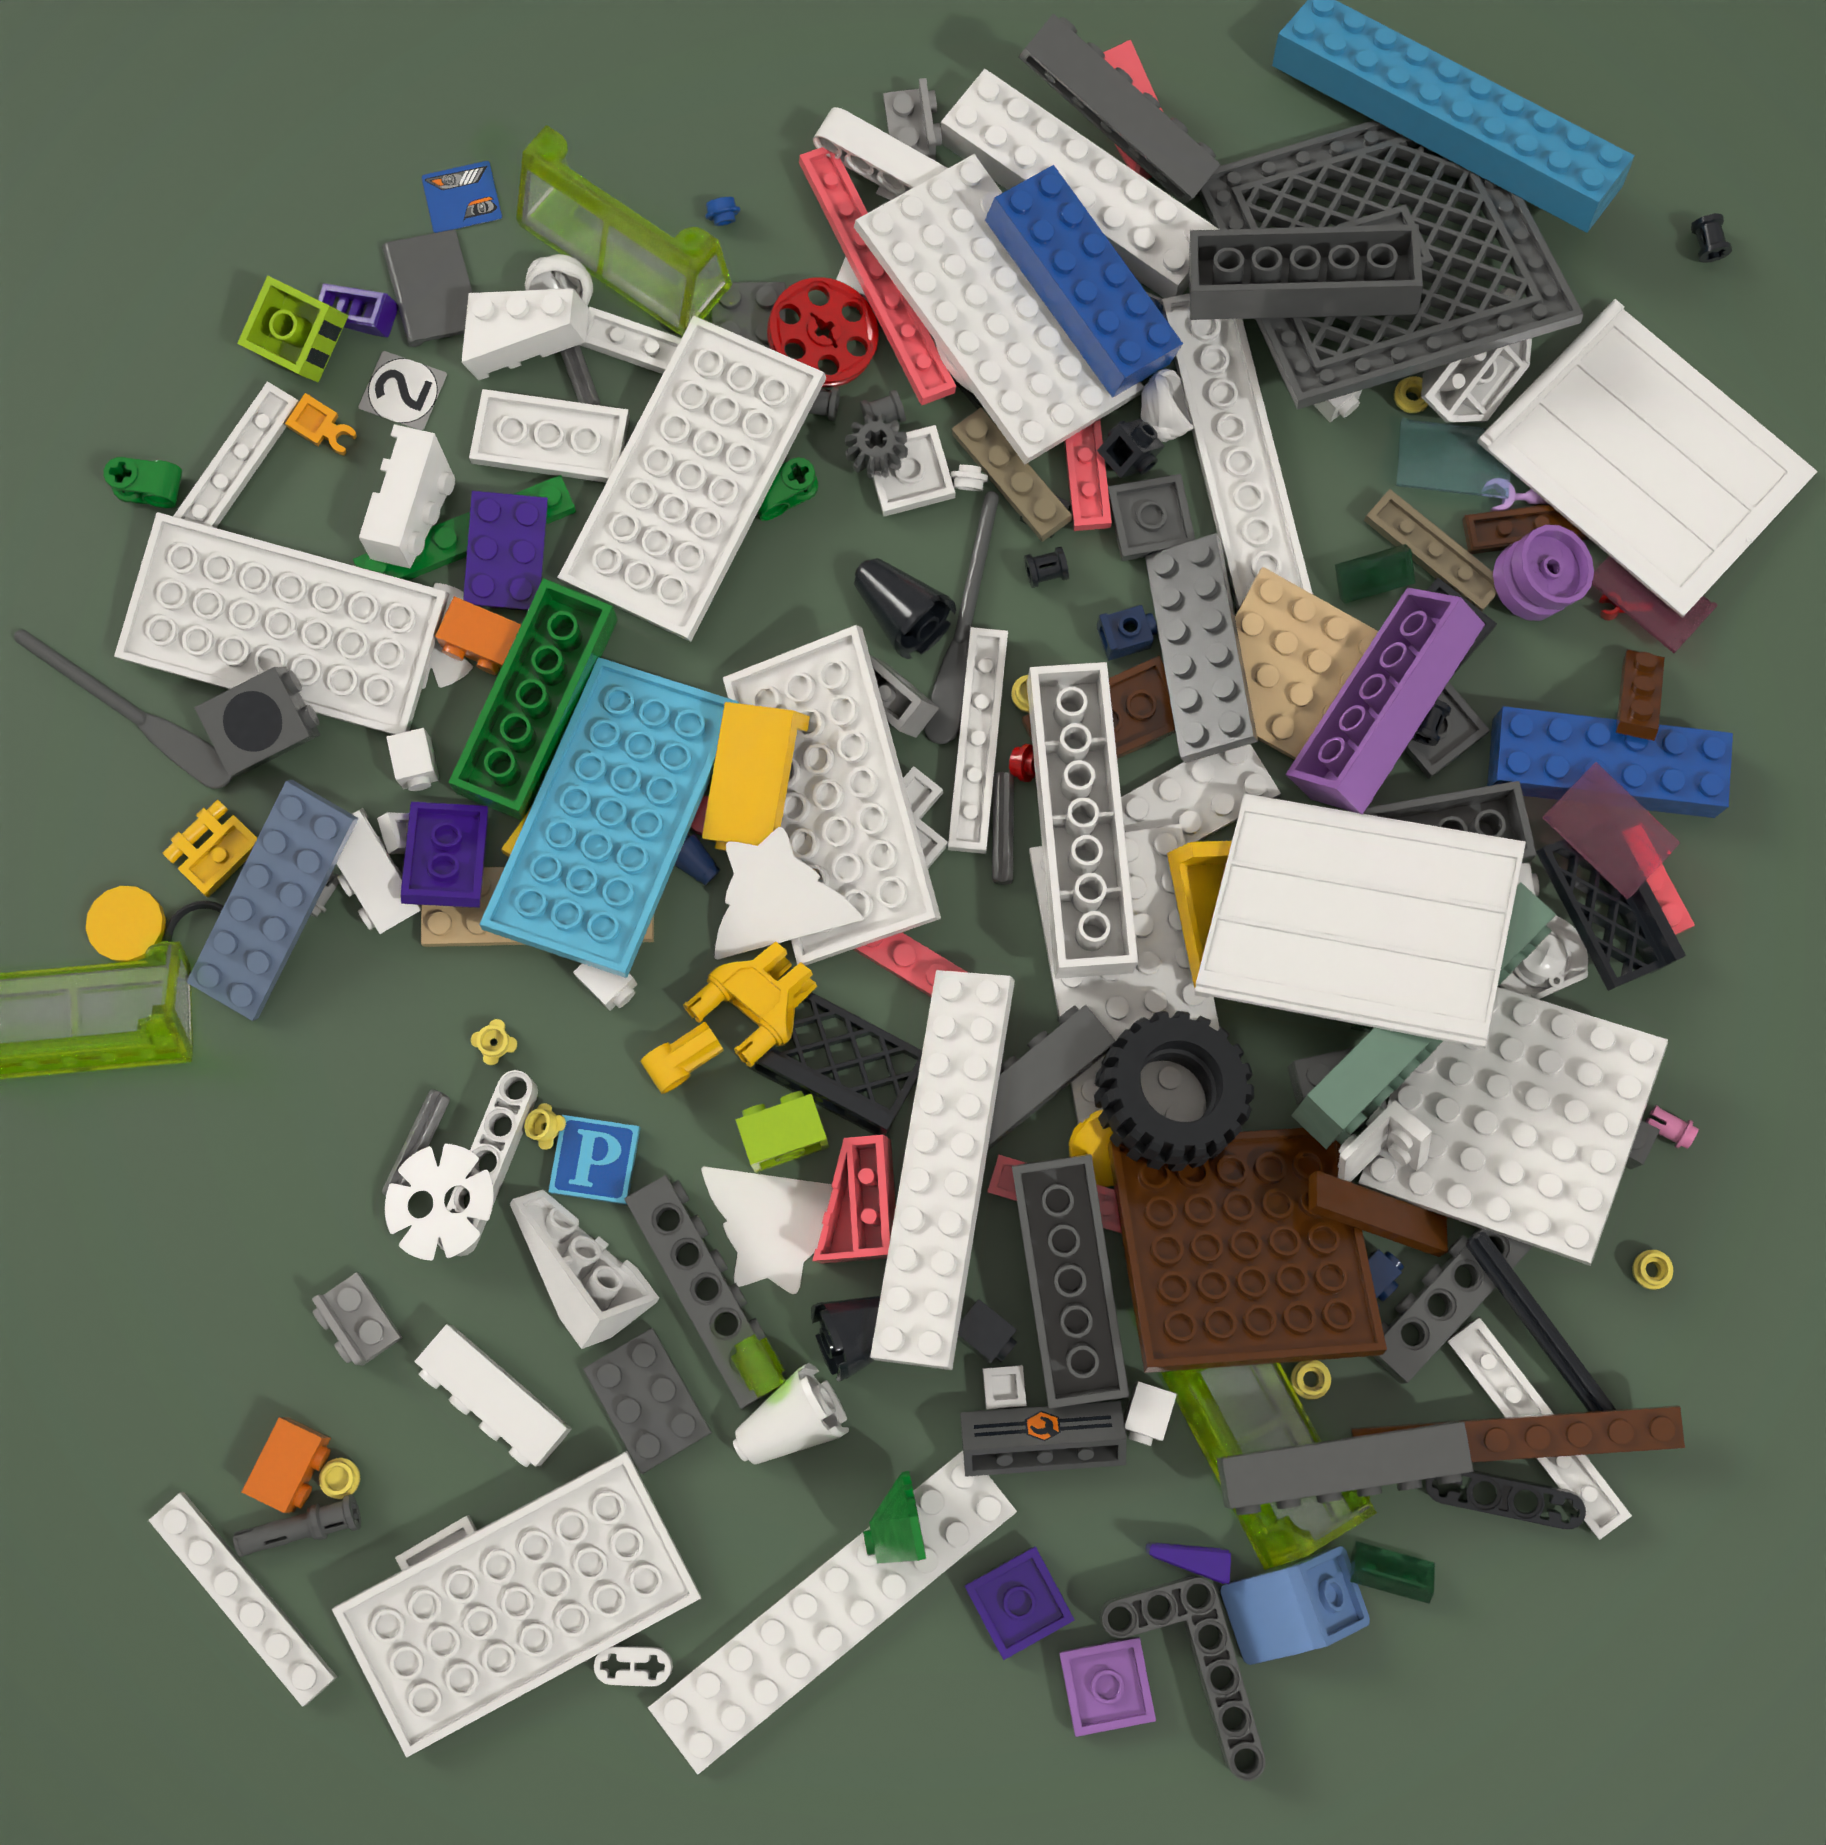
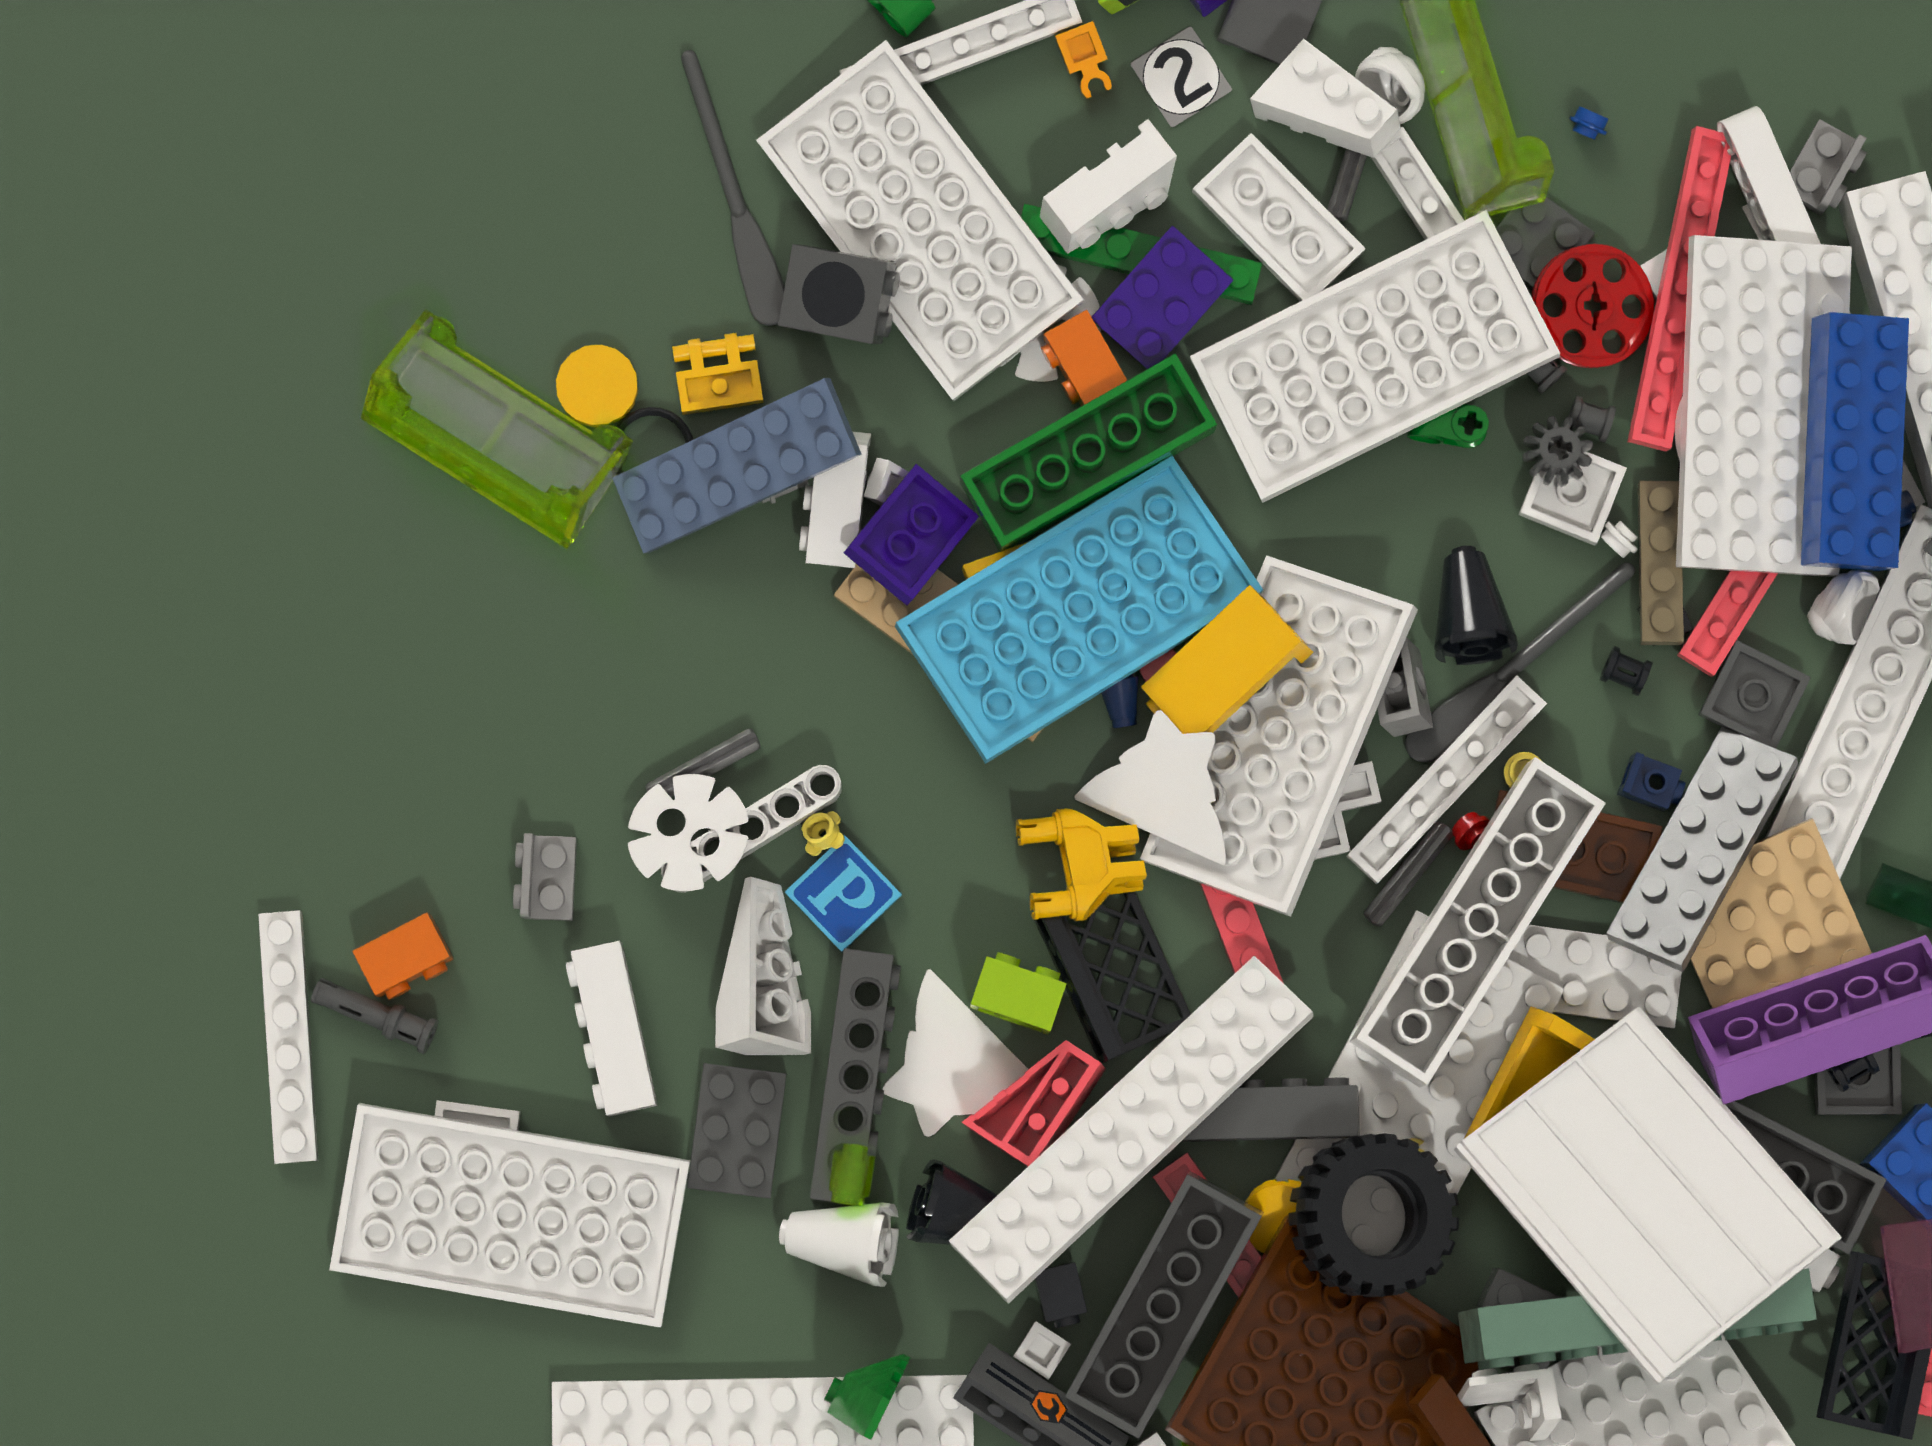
camera: 35 degrees right, 5 degrees up
(339, 1478) = (437, 999): light yellow plate -> none
(413, 759) = (945, 427): white brick -> none
(483, 1039) = (841, 735): light yellow plate -> none
(605, 986) = (962, 754): white brick -> none
(633, 1676) = (558, 1347): white beam -> none
(672, 1063) = (971, 862): yellow piece -> none
(1131, 448) = (1784, 621): black brick -> none
(1552, 965) = (1790, 1358): white hat -> none

